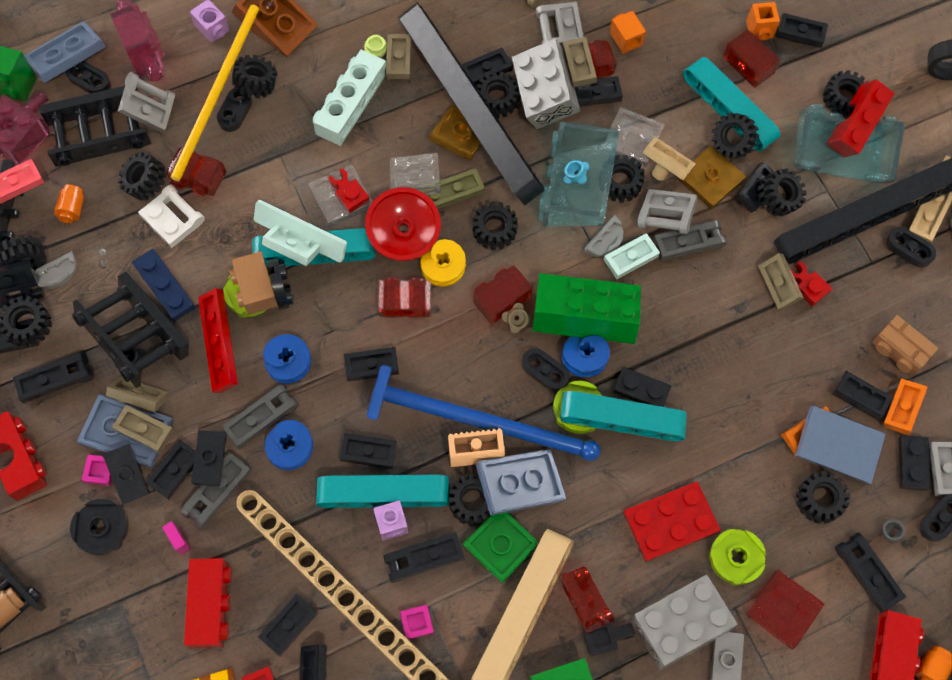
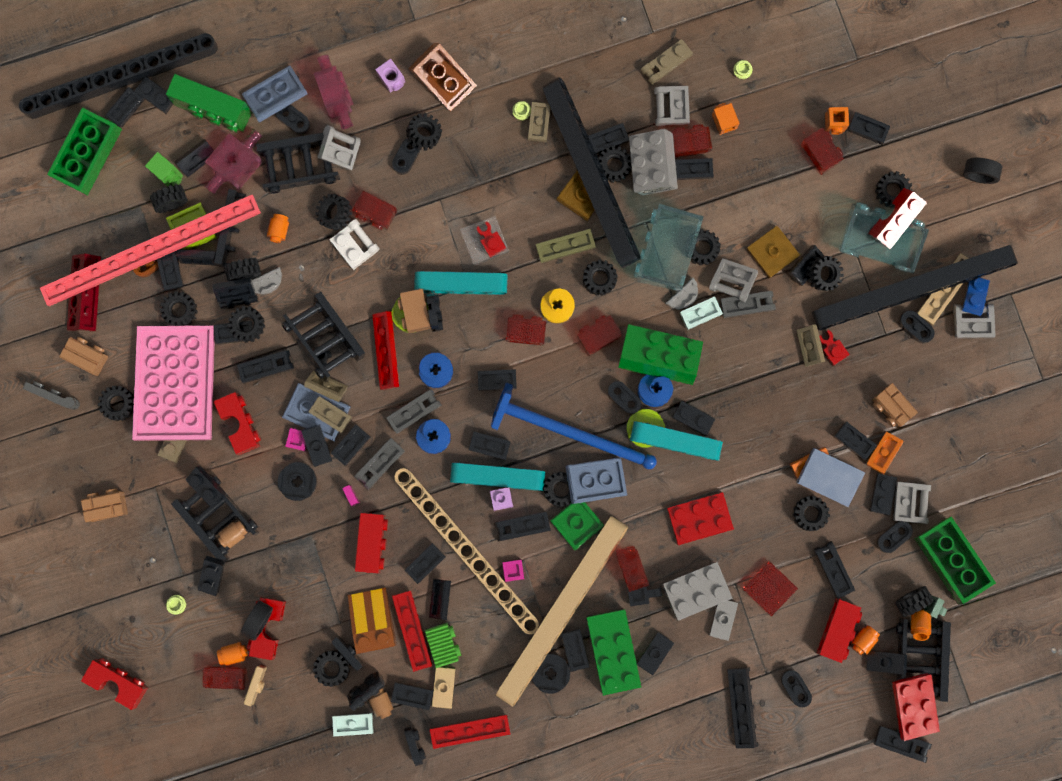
camera: 10 degrees right, 15 degrees up
(163, 285) = (346, 300): dark blue plate -> none
(209, 458) = (376, 441): black plate -> none
(214, 93) = (394, 145): yellow piece -> none
(296, 237) = (447, 278): light aqua bracket -> none
(337, 128) = (507, 129): light aqua brick -> none
(403, 208) = (530, 288): red dish -> none
(416, 172) = (542, 230): clear plate -> none
(475, 447) = (567, 453): light nougat brick -> none
(516, 325) = (612, 354): dark tan plate -> none
(573, 167) = (664, 236): medium azure plate -> none
(579, 62) = (682, 147): dark tan plate -> none
(635, 134) = (718, 211): clear plate -> none
(667, 160) = (740, 237): tan tile -> none
(725, 125) = (786, 225): black tyre -> none
(728, 98) = (799, 190): teal beam -> none
(731, 571) = (731, 548): lime plate -> none
(888, 527) = (853, 540): dark grey hinge -> none

